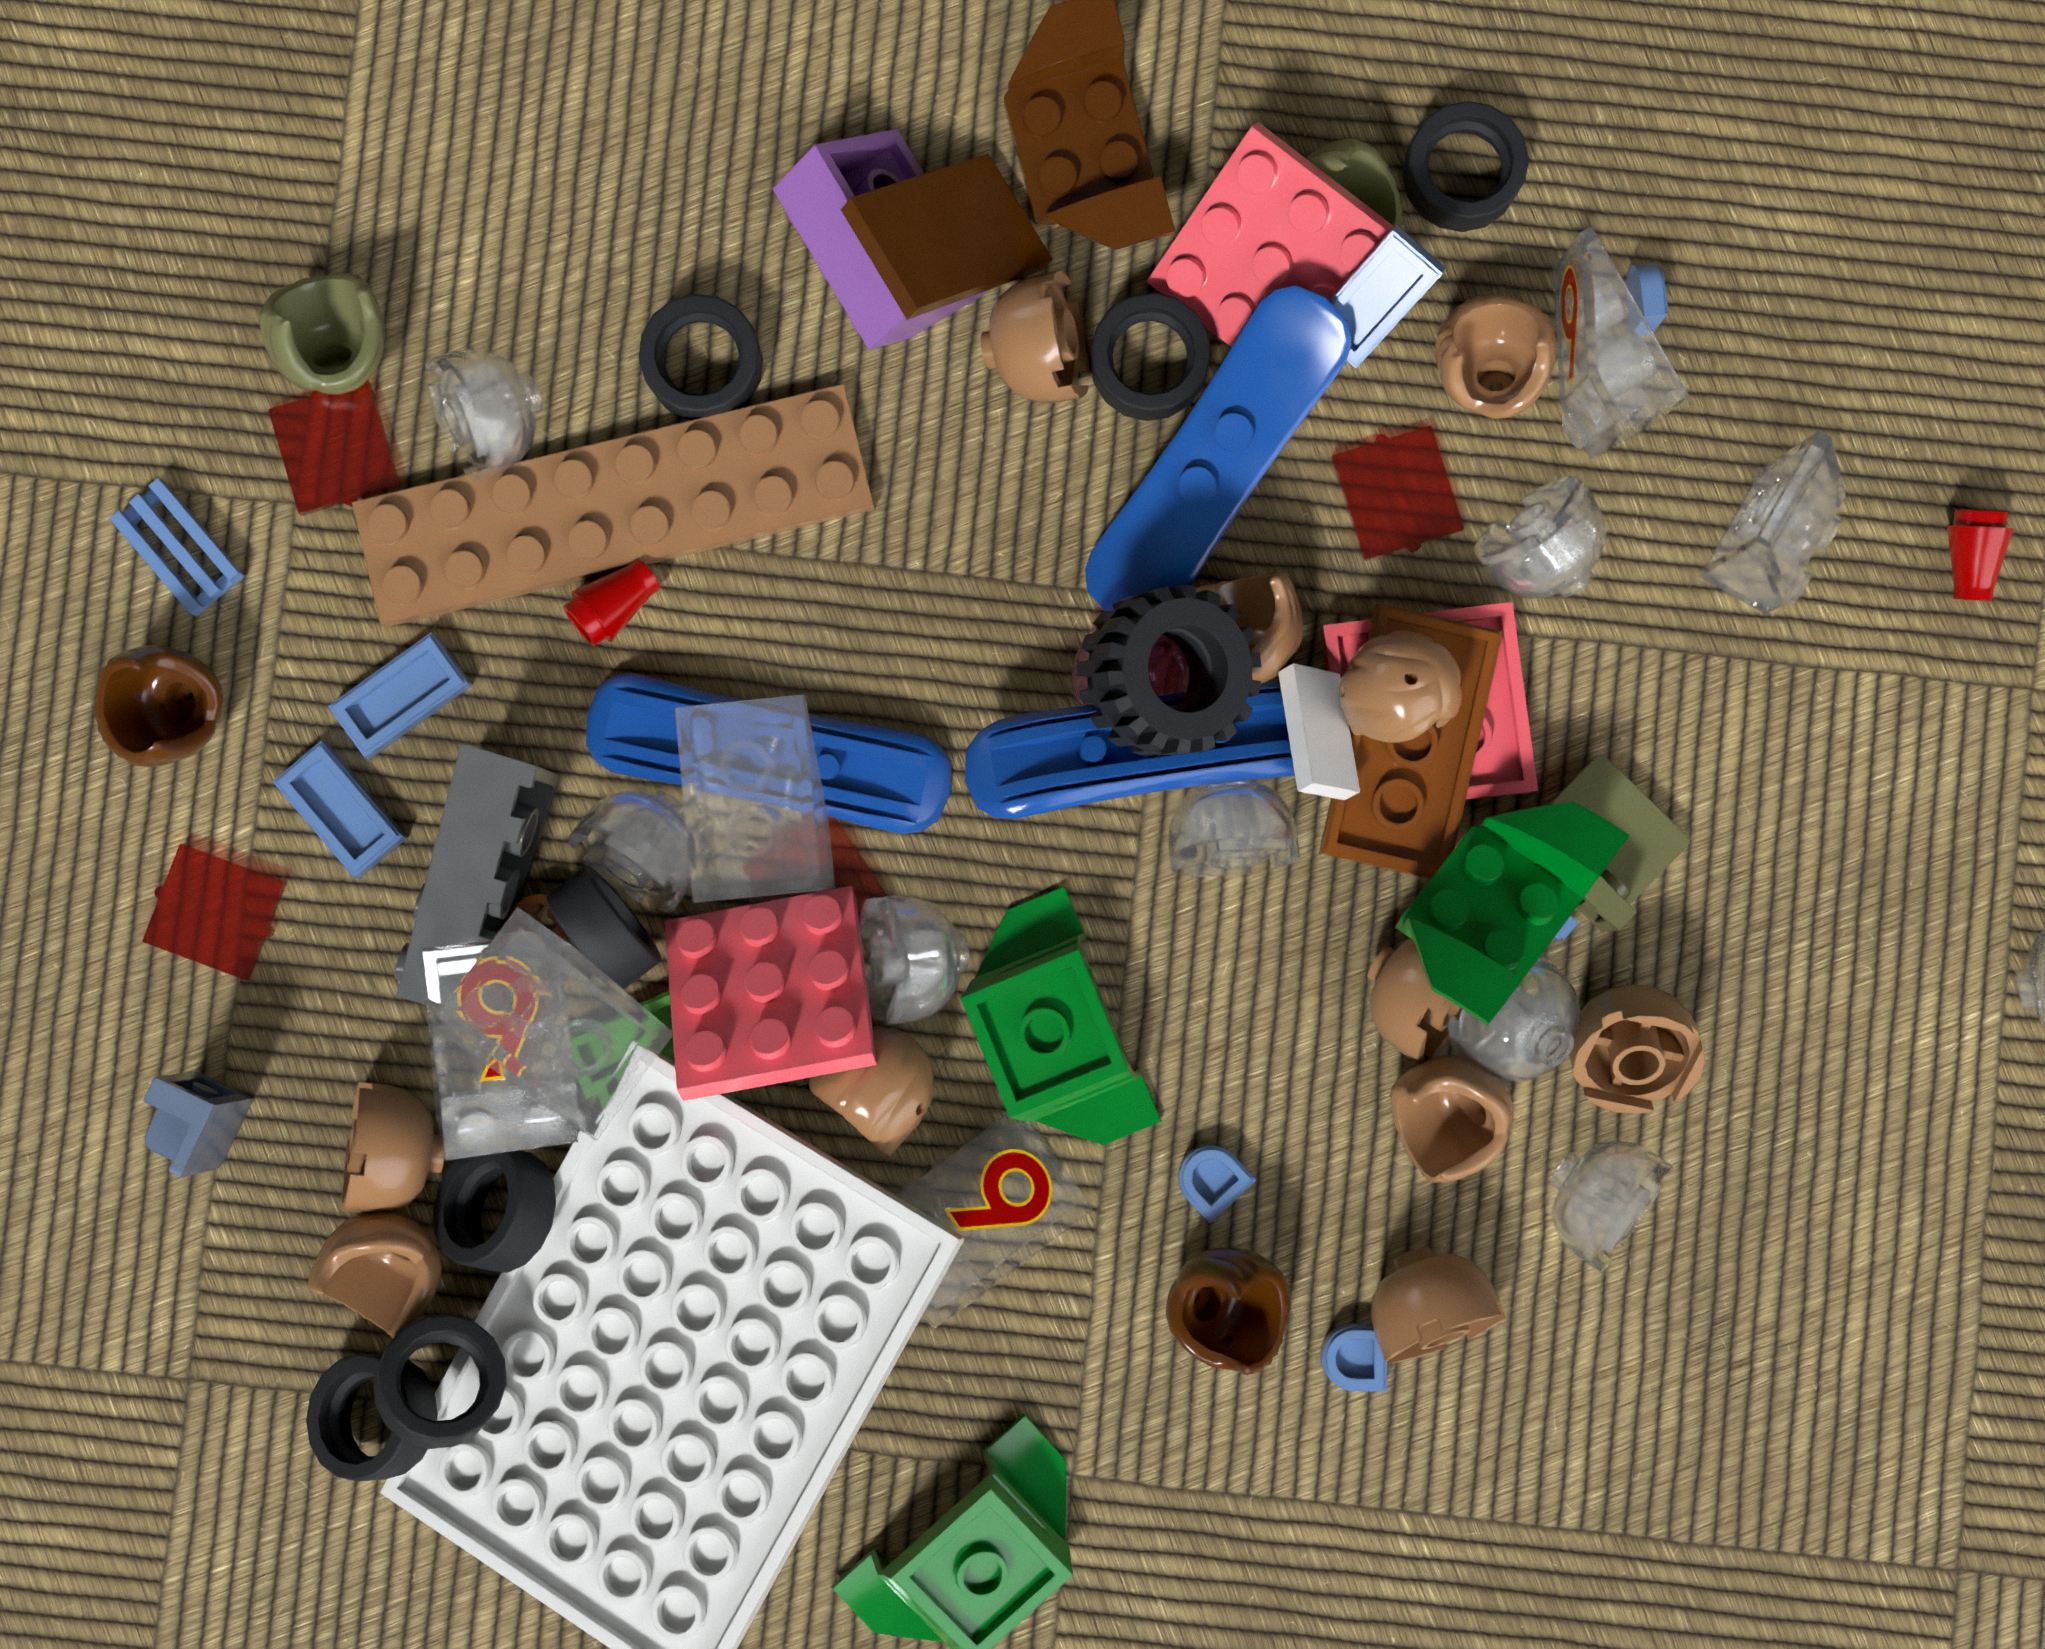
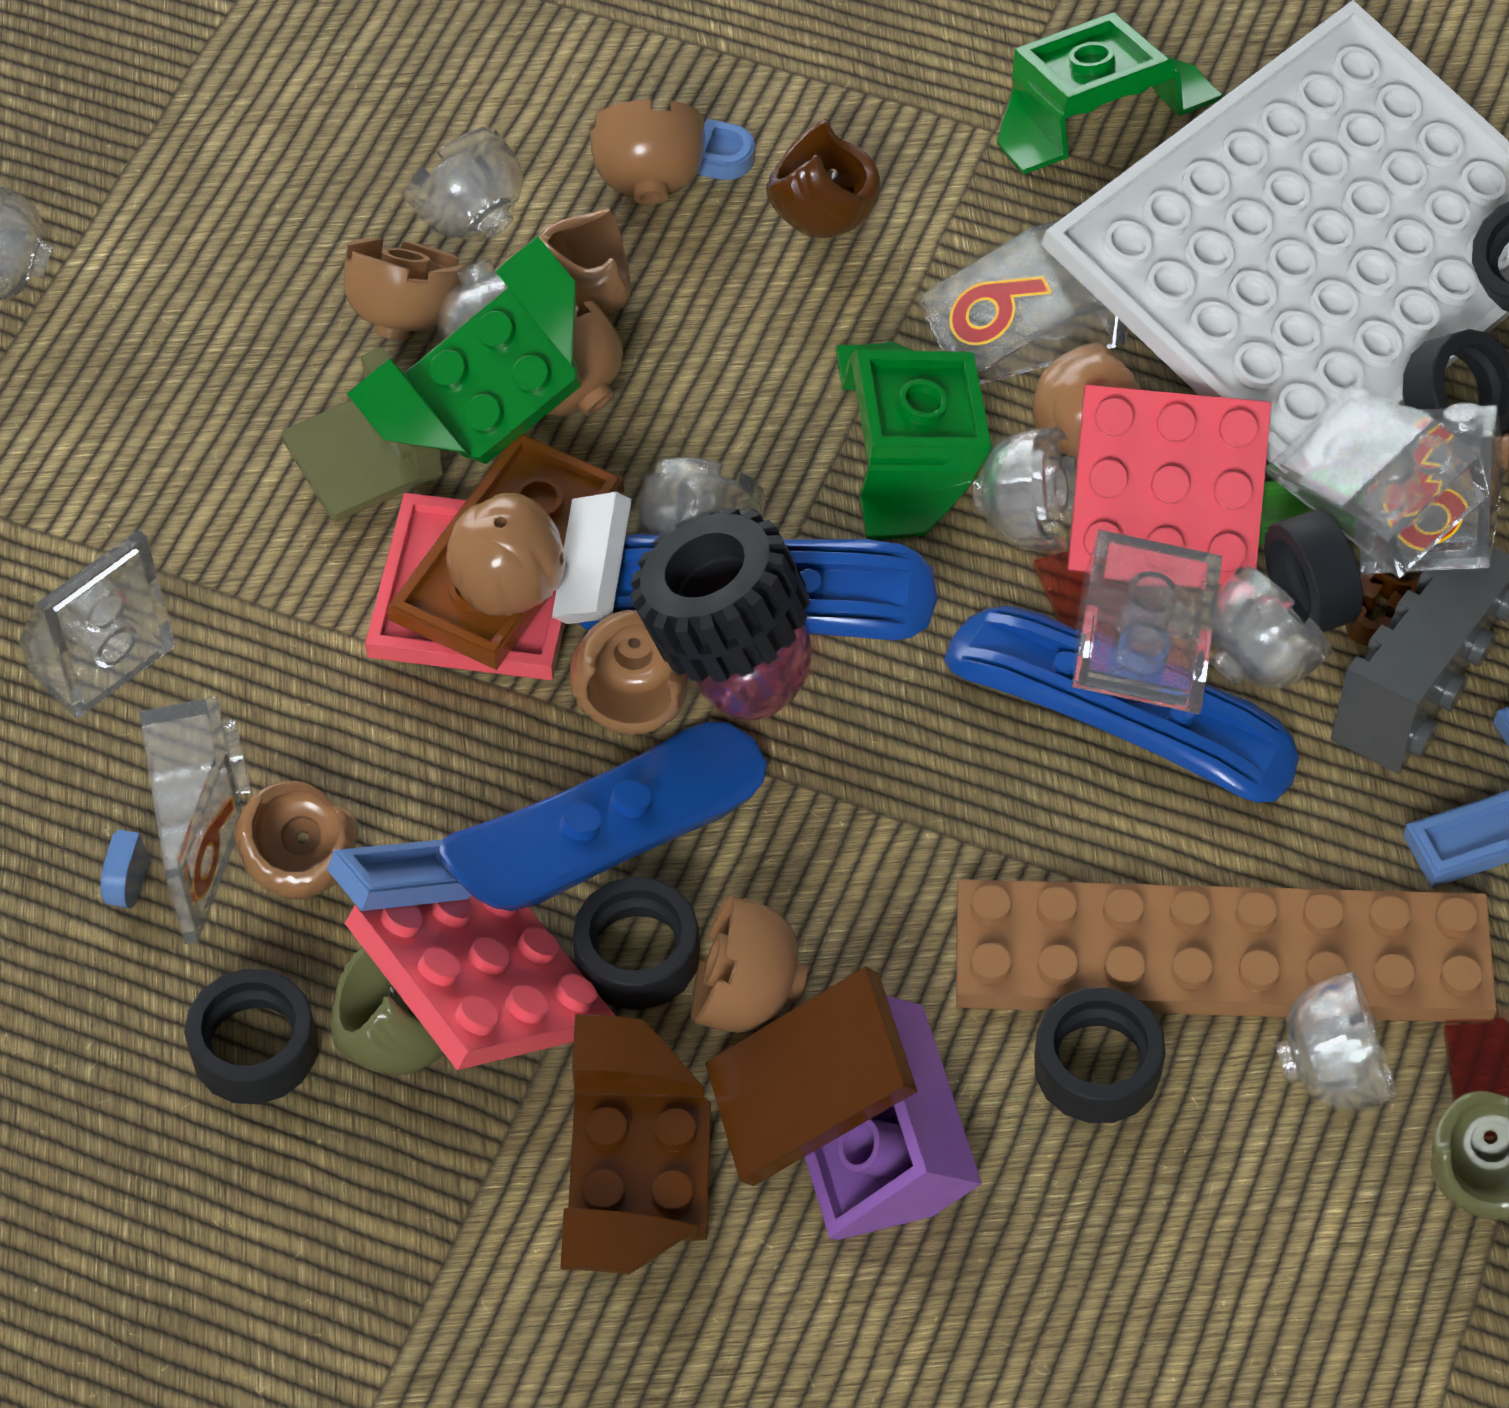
camera: 160 degrees left, 30 degrees down
(610, 602) = (1246, 856): red cone -> none
(1212, 1179) = (803, 294): medium blue tile -> none
(1397, 493) = (433, 778): clear red piece -> none
(1548, 543) = (317, 681): clear cylinder -> none

